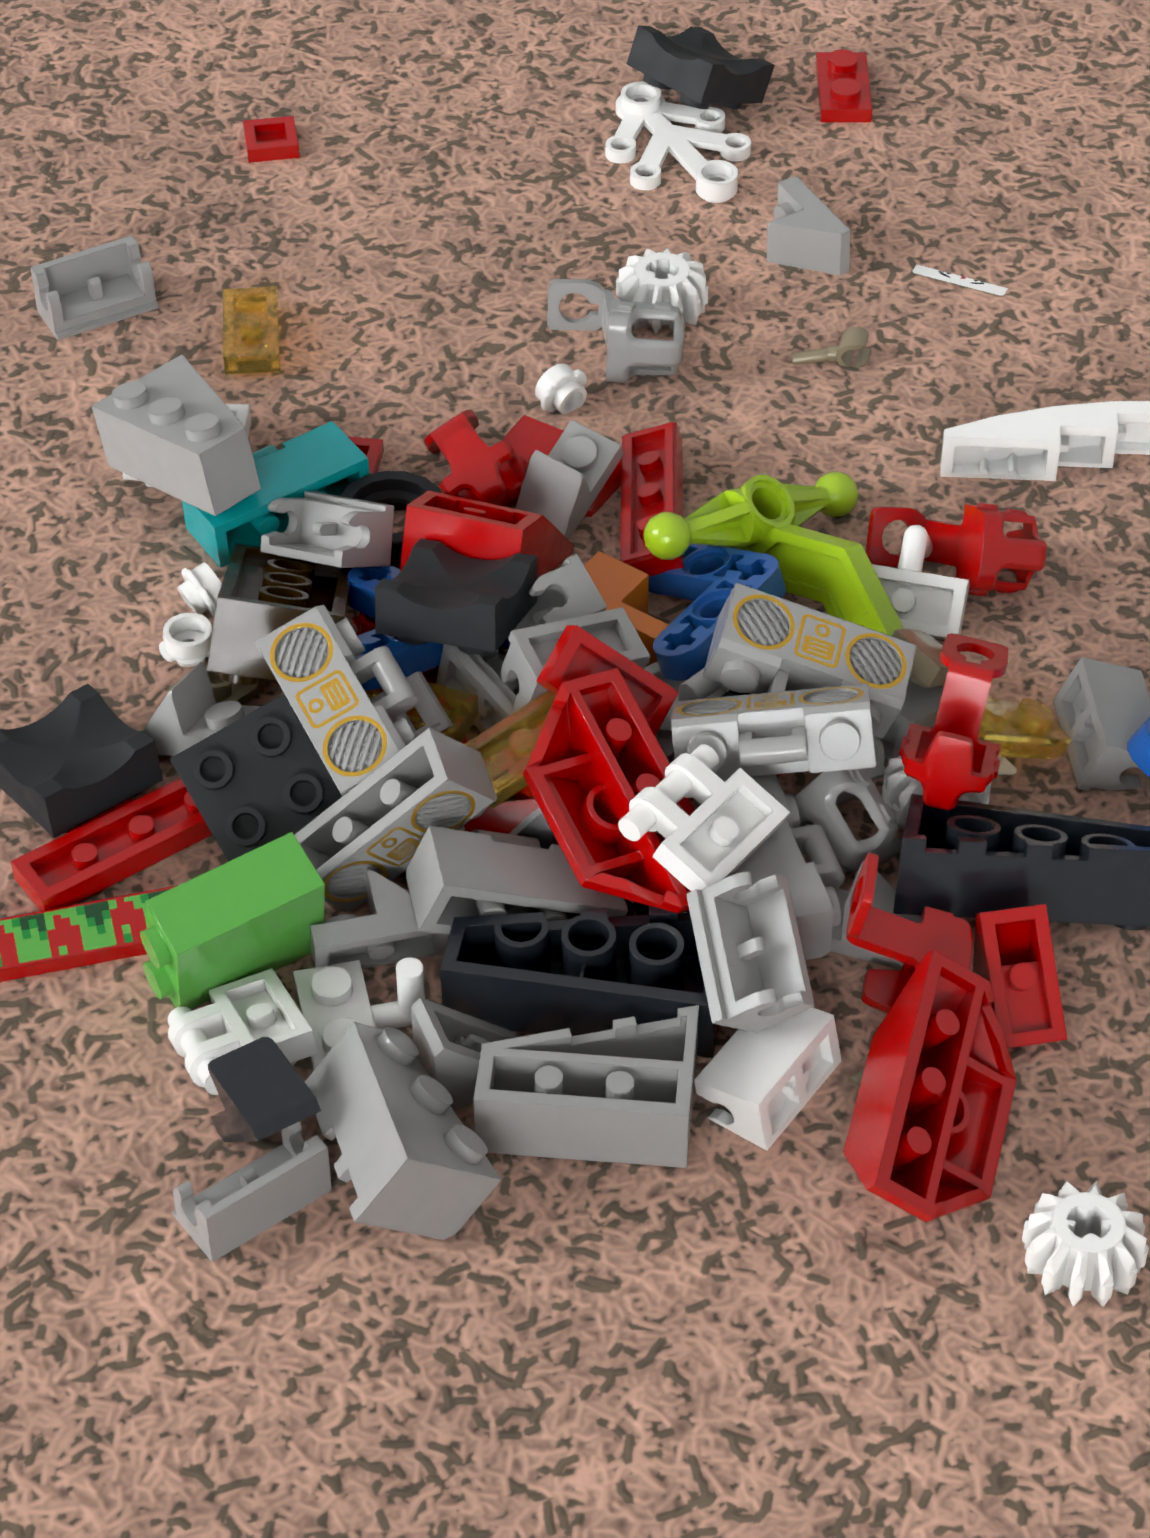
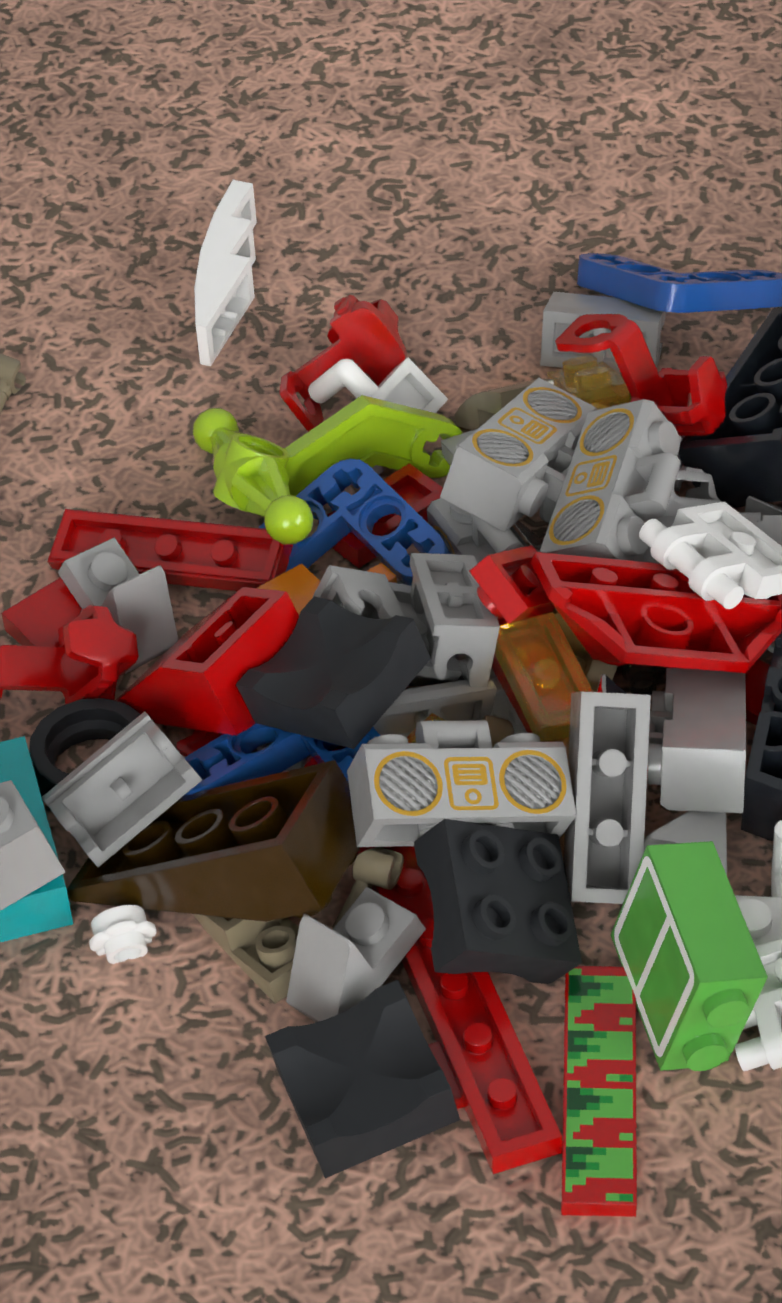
camera: 70 degrees left, 0 degrees up
(186, 639) = (194, 946): white plate -> none

